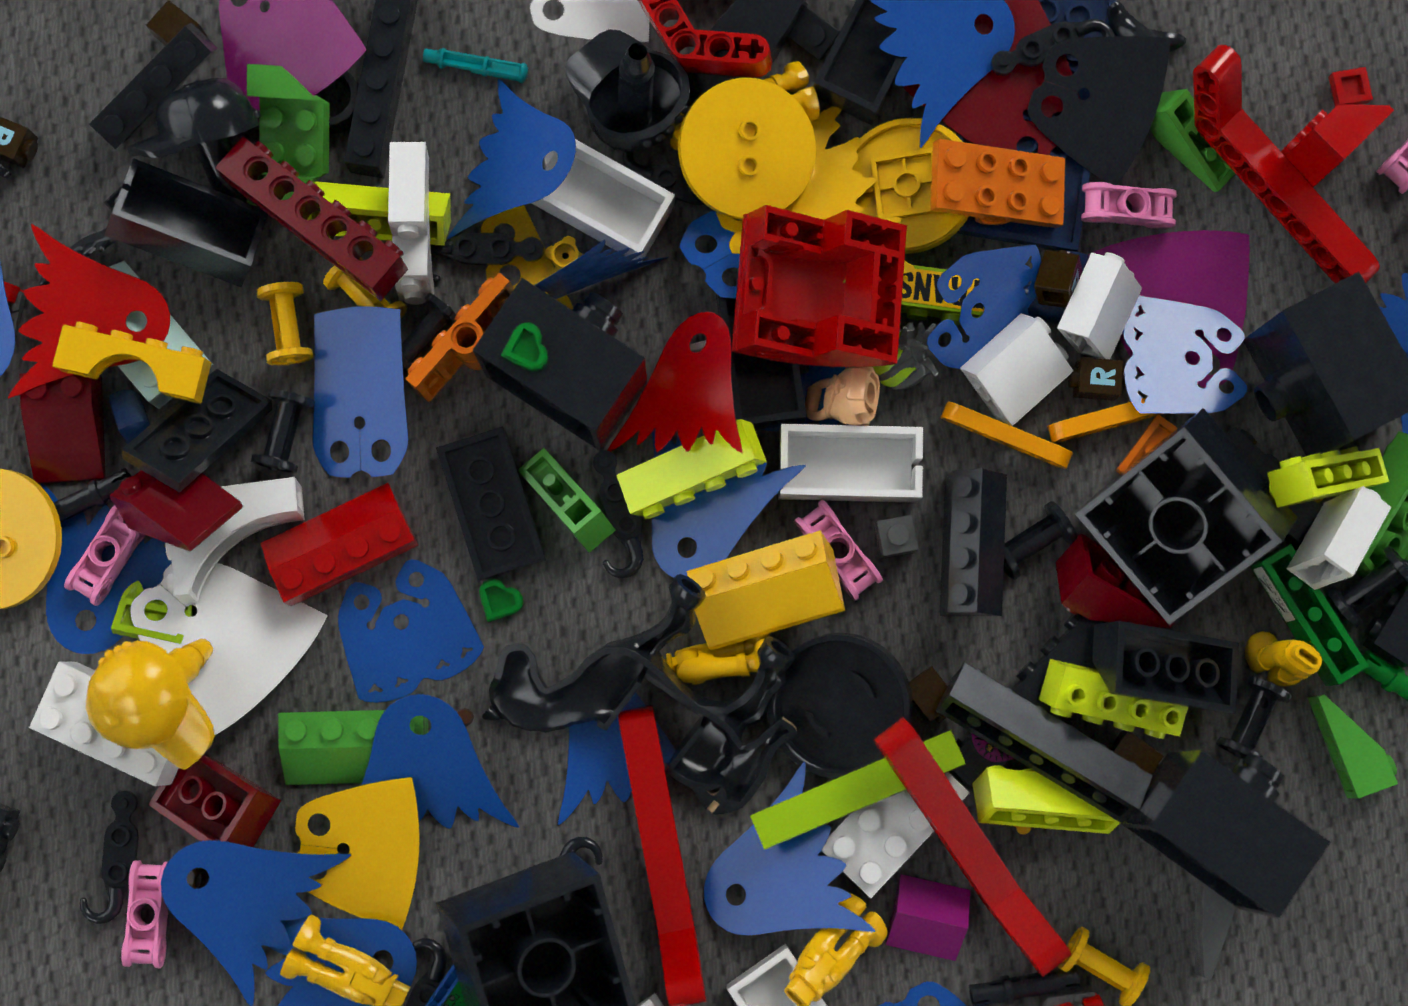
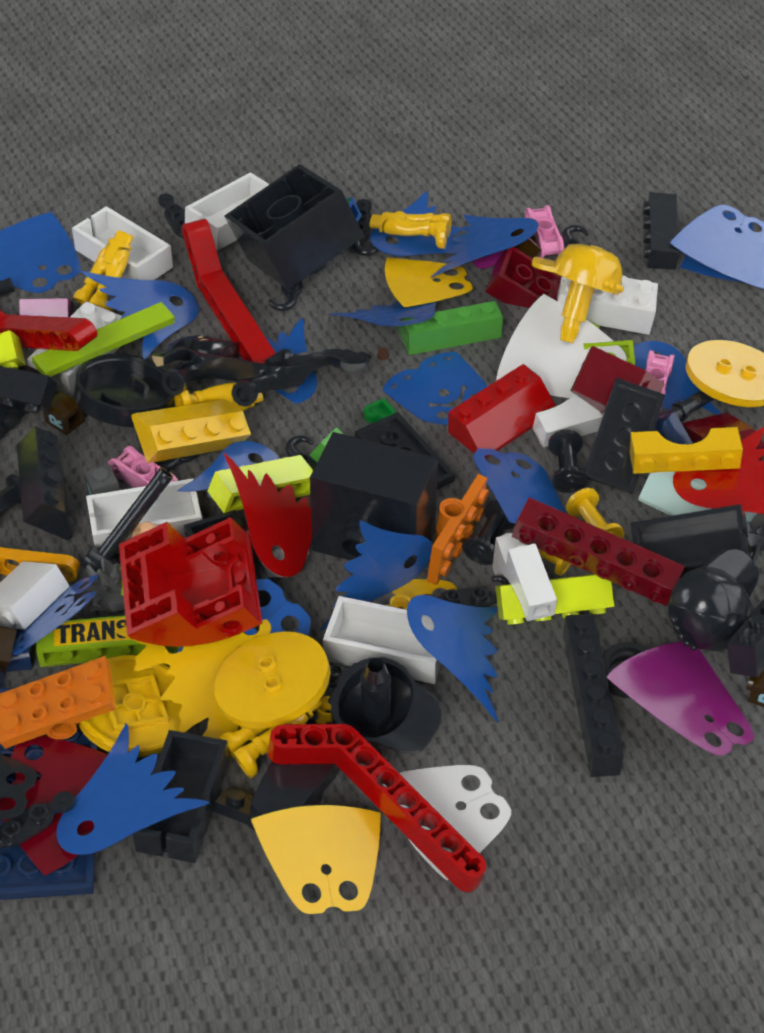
camera: 170 degrees right, 35 degrees down
(291, 122) = (640, 626): bright green piece -> none
(477, 64) = (518, 722): teal piece -> none
(526, 348) = (397, 461): green tile -> none
(910, 407) = (128, 521): none -> black piece

